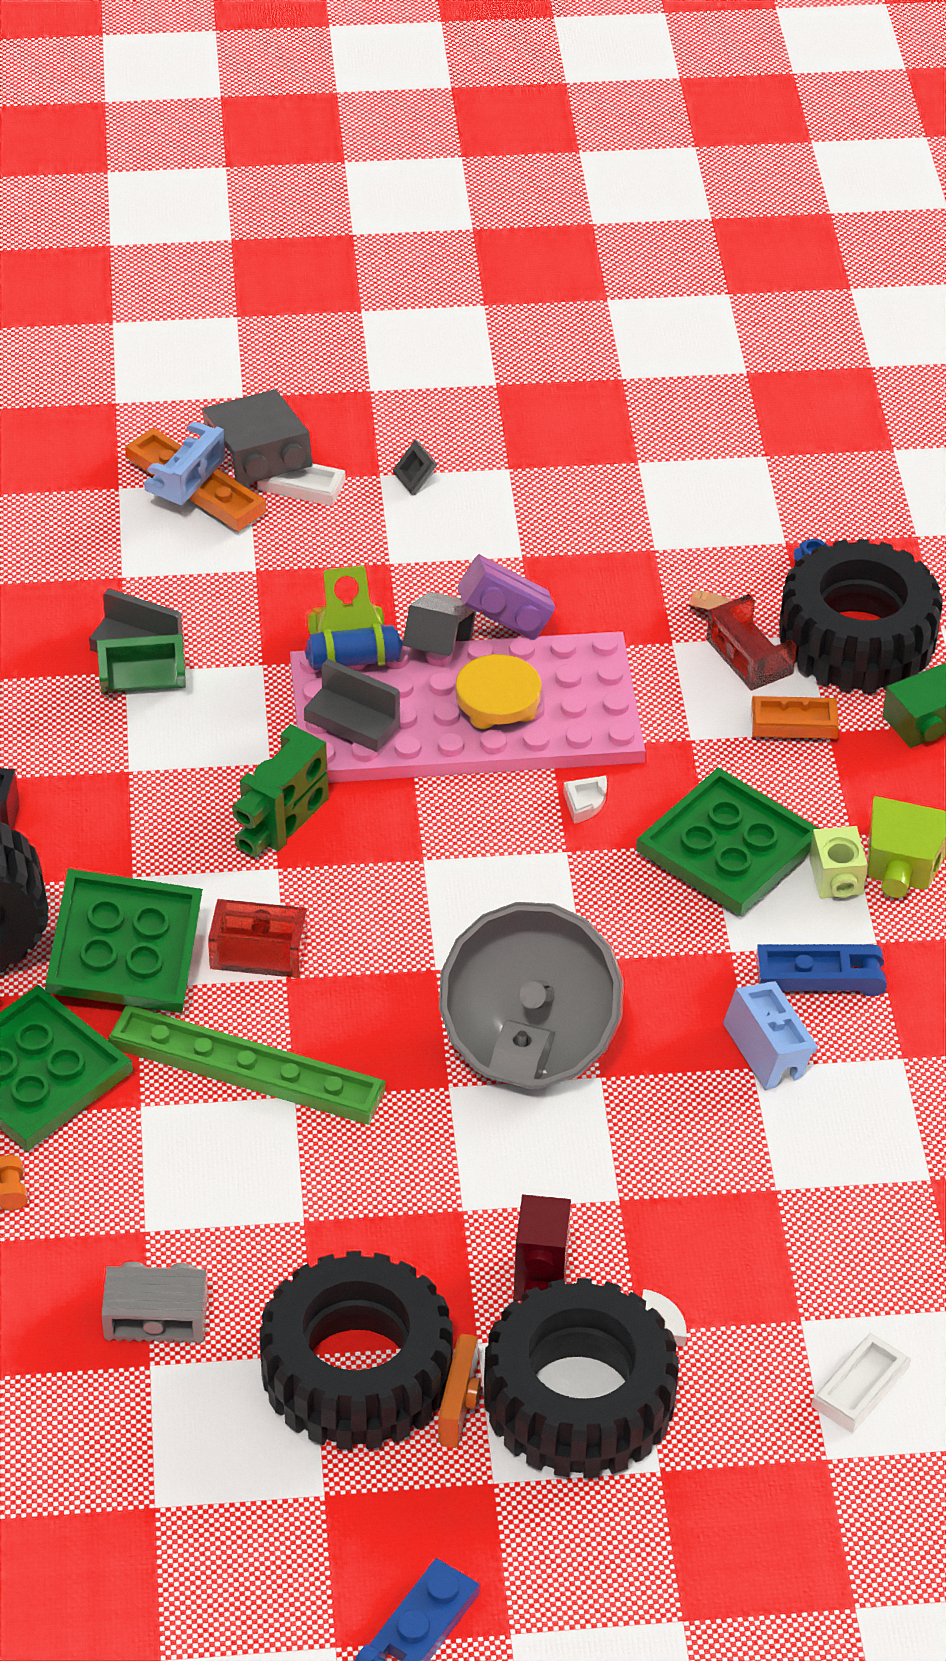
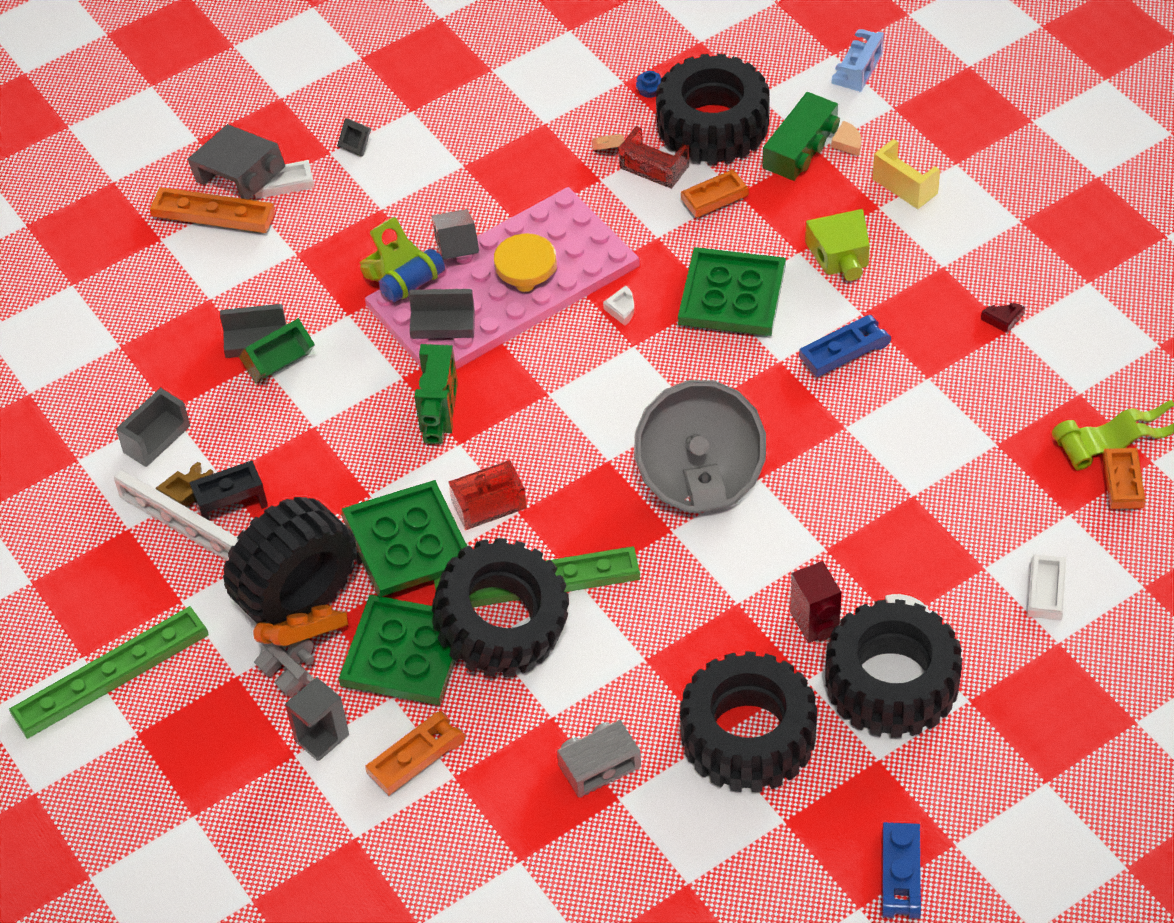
camera: 25 degrees left, 5 degrees up
(171, 1013) = (510, 569): none -> black tyre
(189, 465) = (206, 201): light blue hinge -> none
(461, 1391) = (827, 717): orange plate -> none
(506, 597) = (485, 197): medium lavender brick -> none
(768, 1033) = (845, 401): light blue hinge -> none
(838, 862) = (809, 273): yellowish green brick -> none

